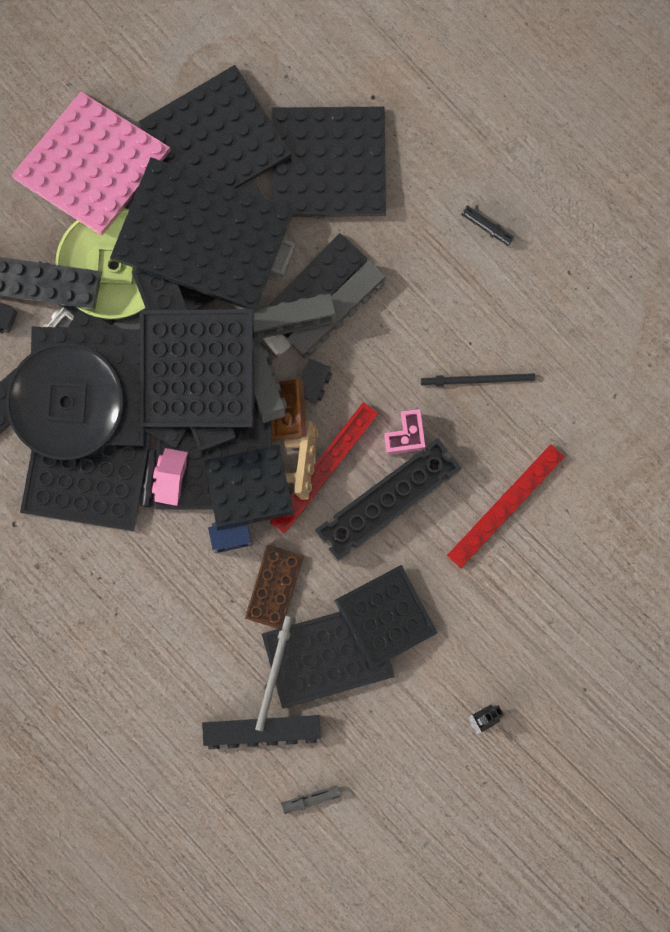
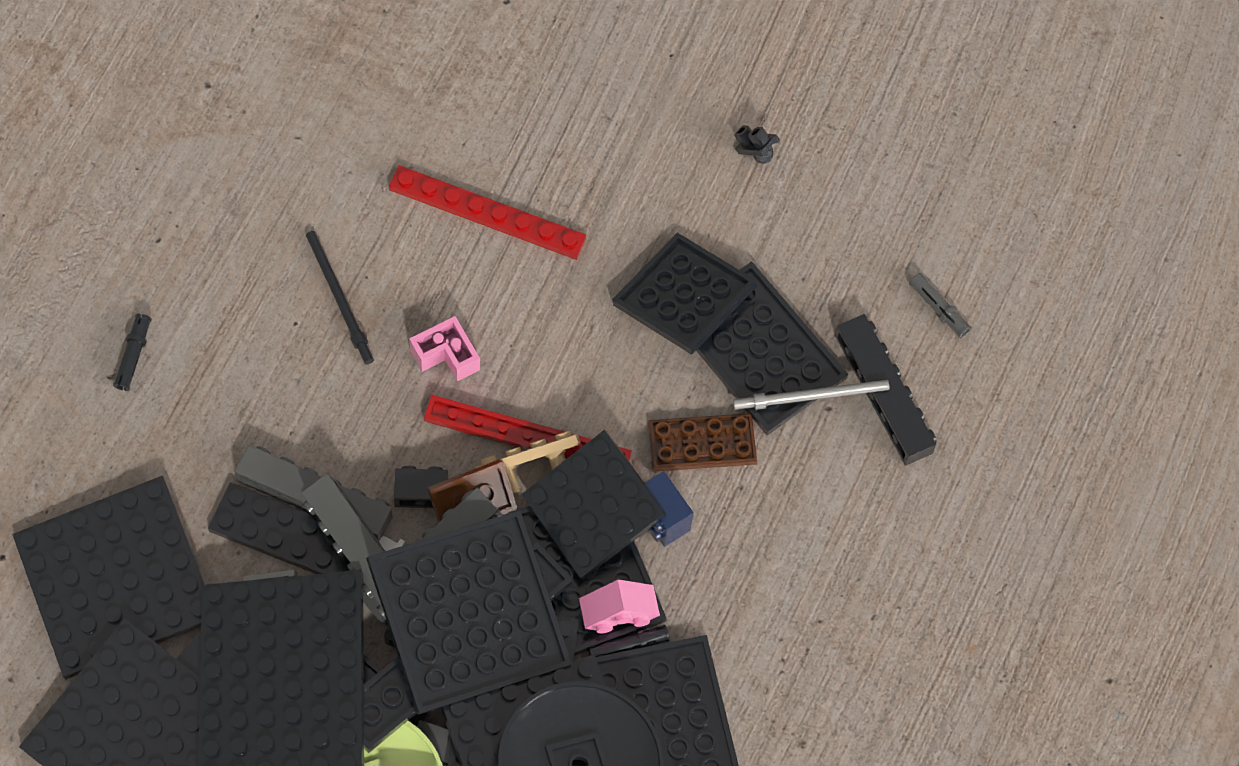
camera: 120 degrees left, 15 degrees down
(388, 500) = (539, 342): black brick -> none

